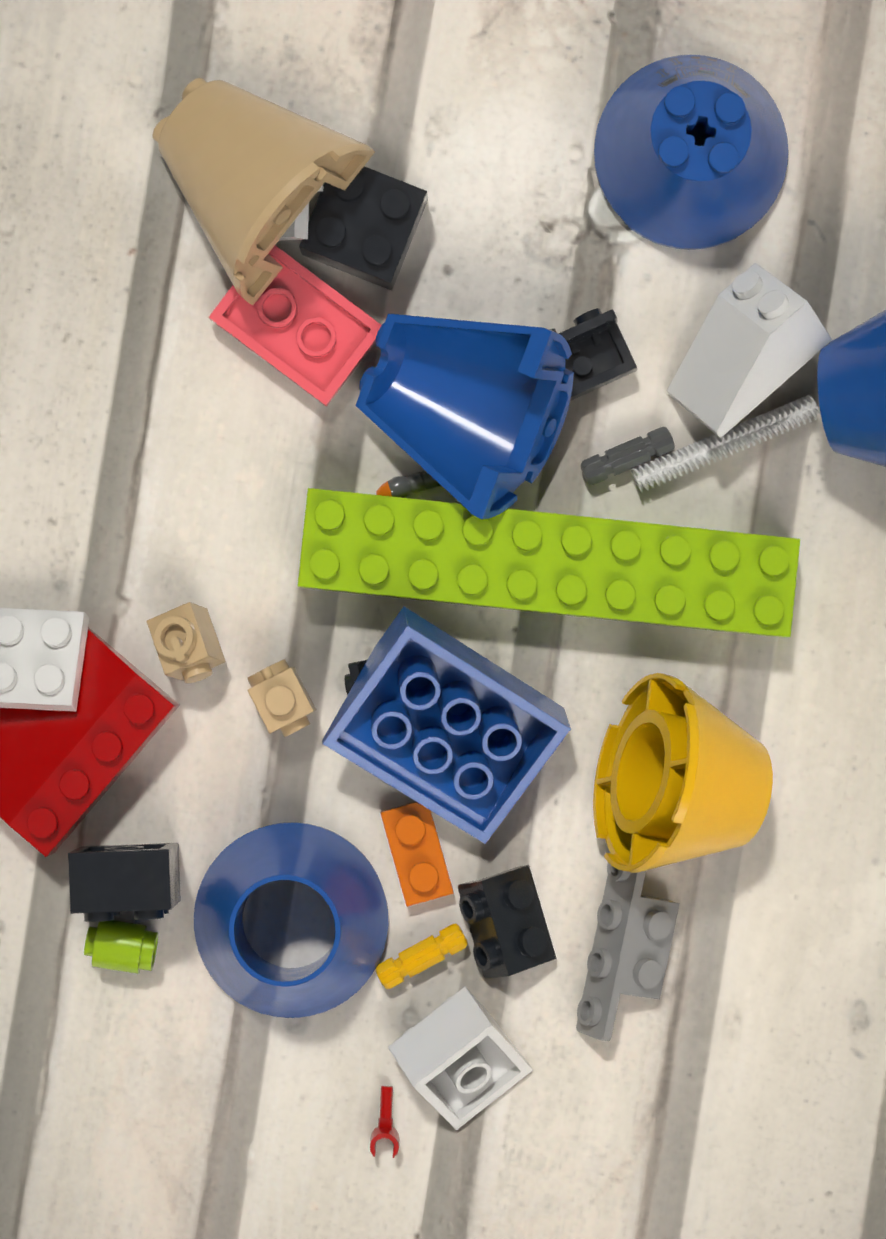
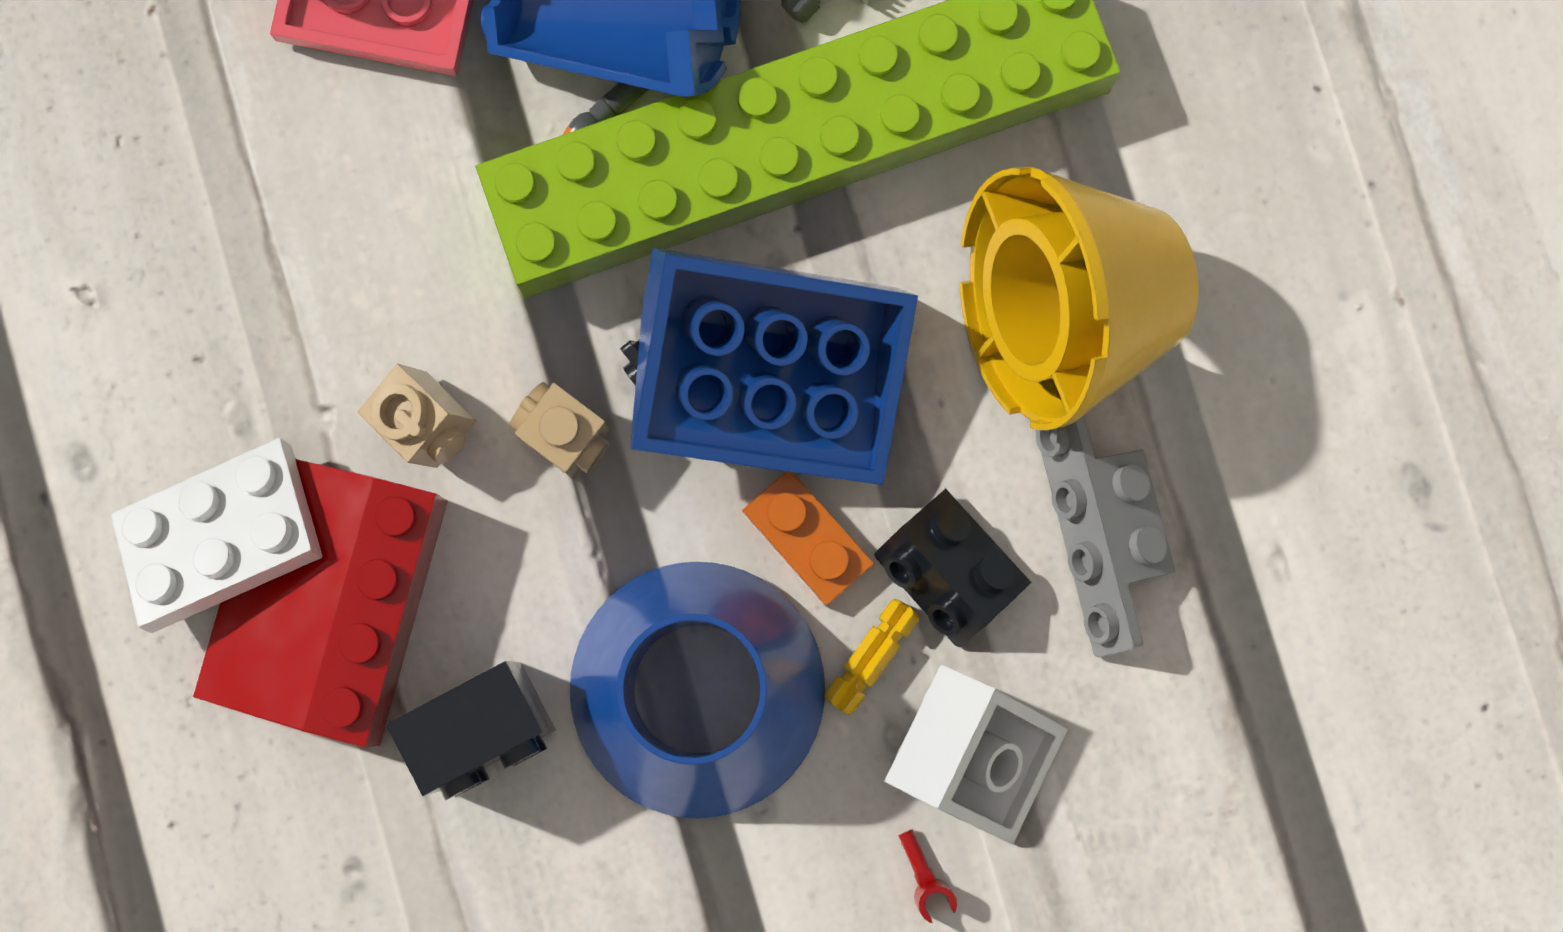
camera: 30 degrees left, 5 degrees down
(121, 946) = (509, 815): lime brick -> none

